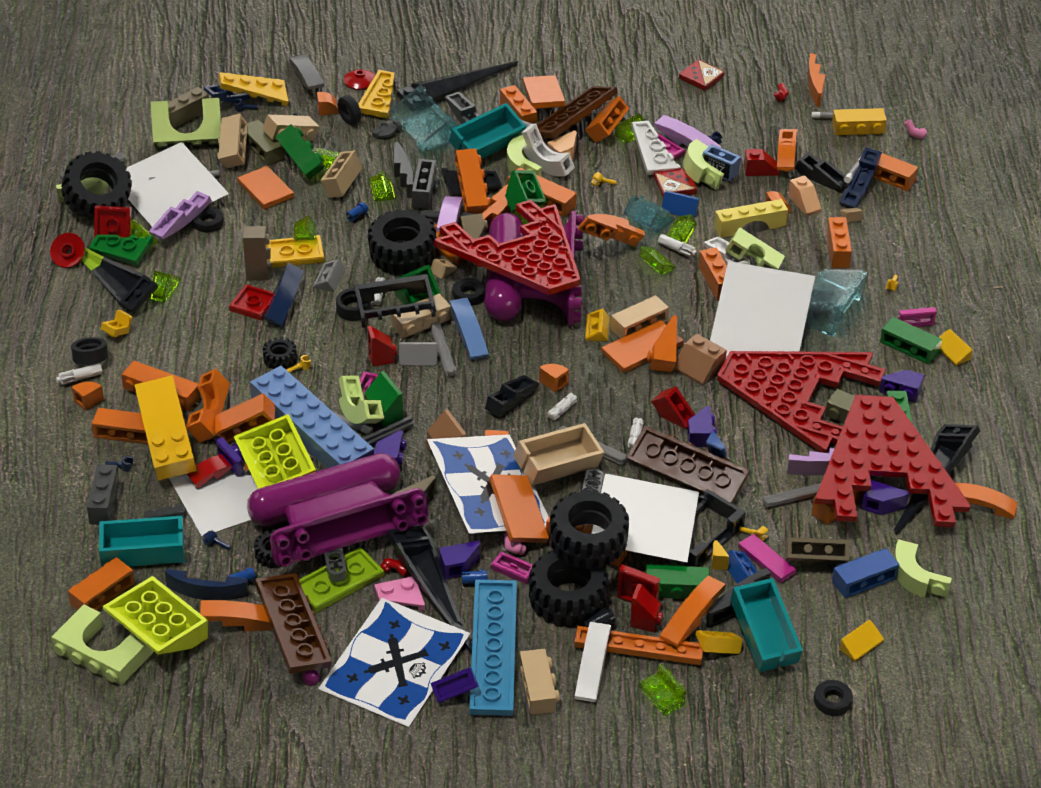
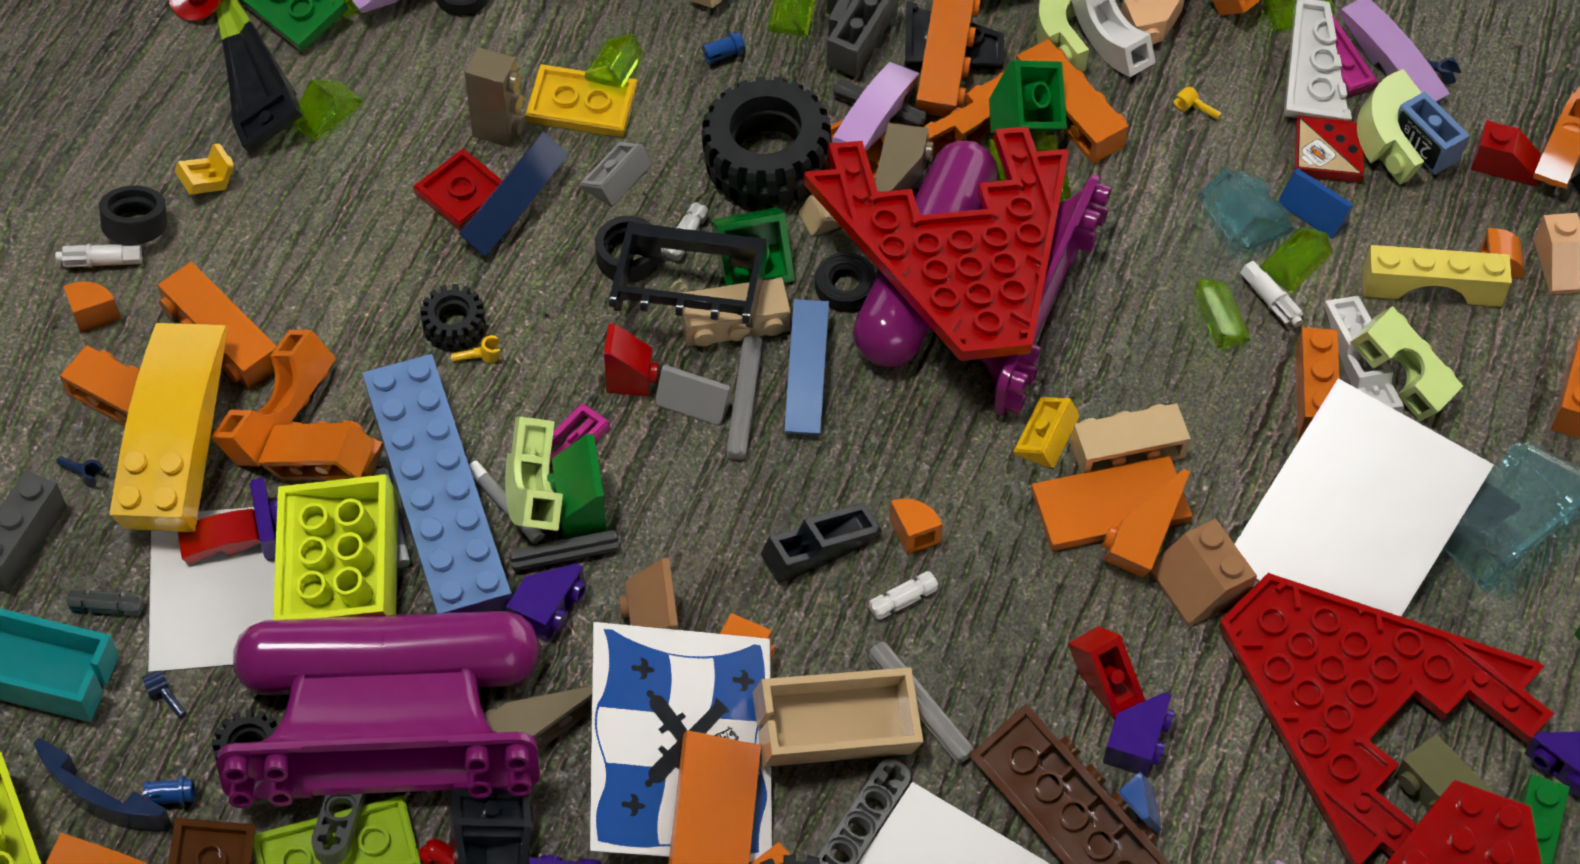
camera: 20 degrees right, 15 degrees up
(613, 227) = (1148, 225): orange slope -> none
(635, 431) = (1013, 698): white axle -> none

